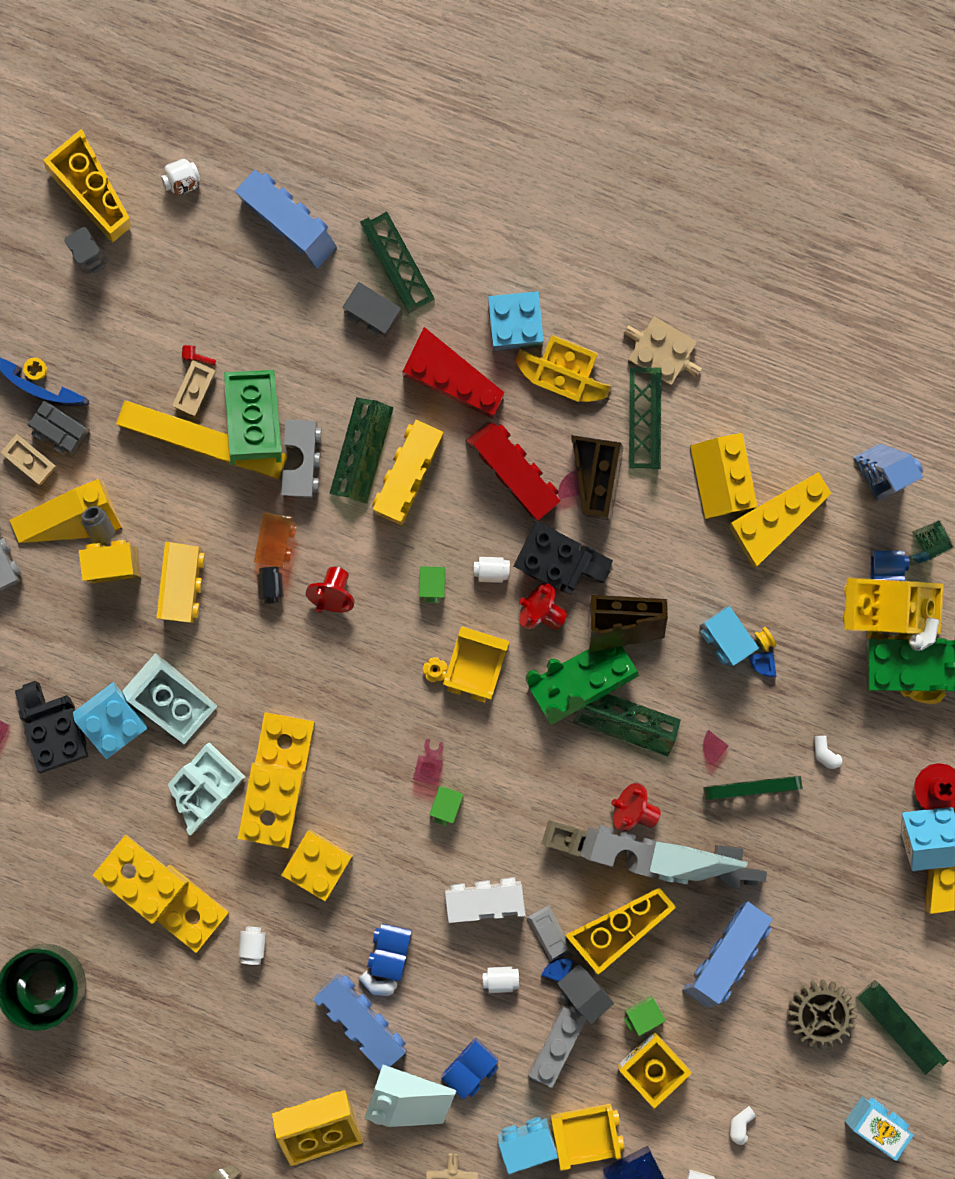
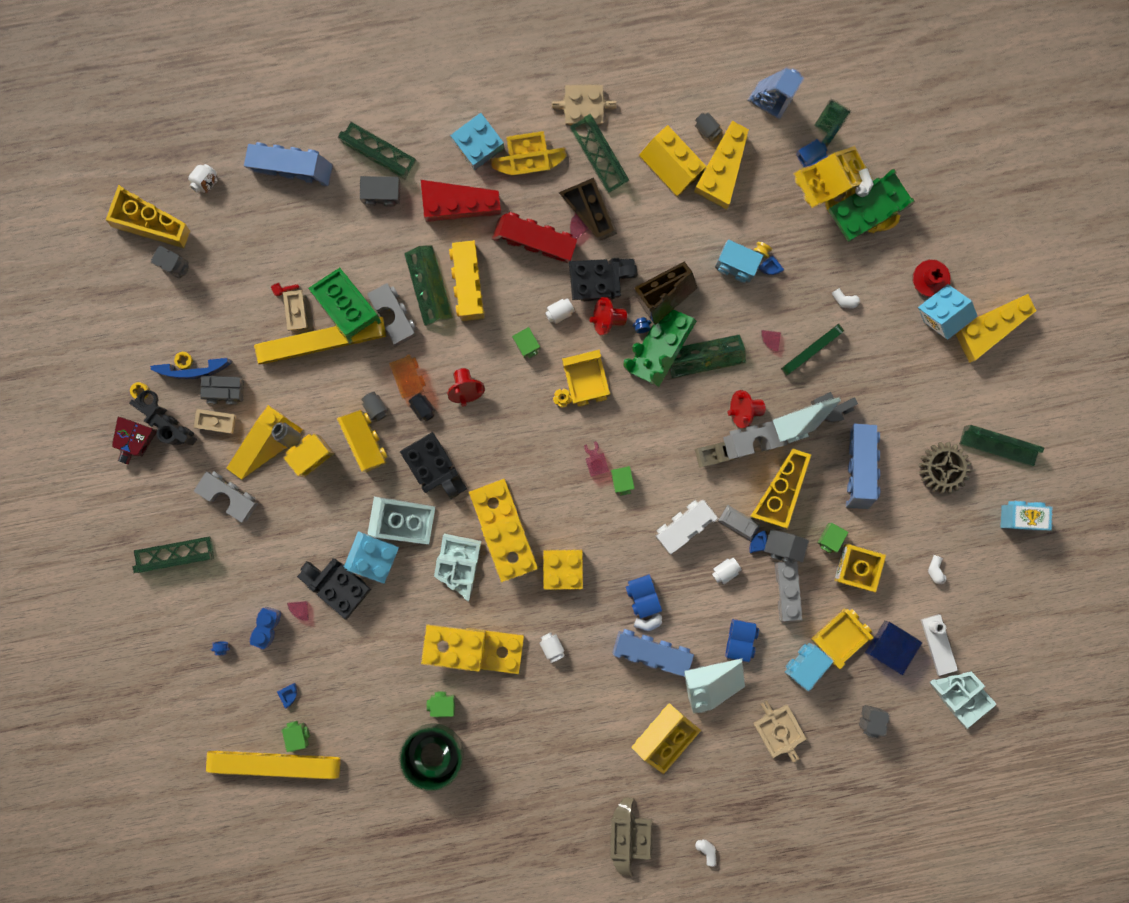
camera: 35 degrees left, 0 degrees up
(88, 934) = (441, 705): none -> bright green brick
(217, 551) = (374, 406): none -> dark grey brick
(240, 658) = (431, 466): none -> black plate
(575, 642) = (642, 325): none -> blue plate
(789, 460) = (708, 126): none -> dark grey brick

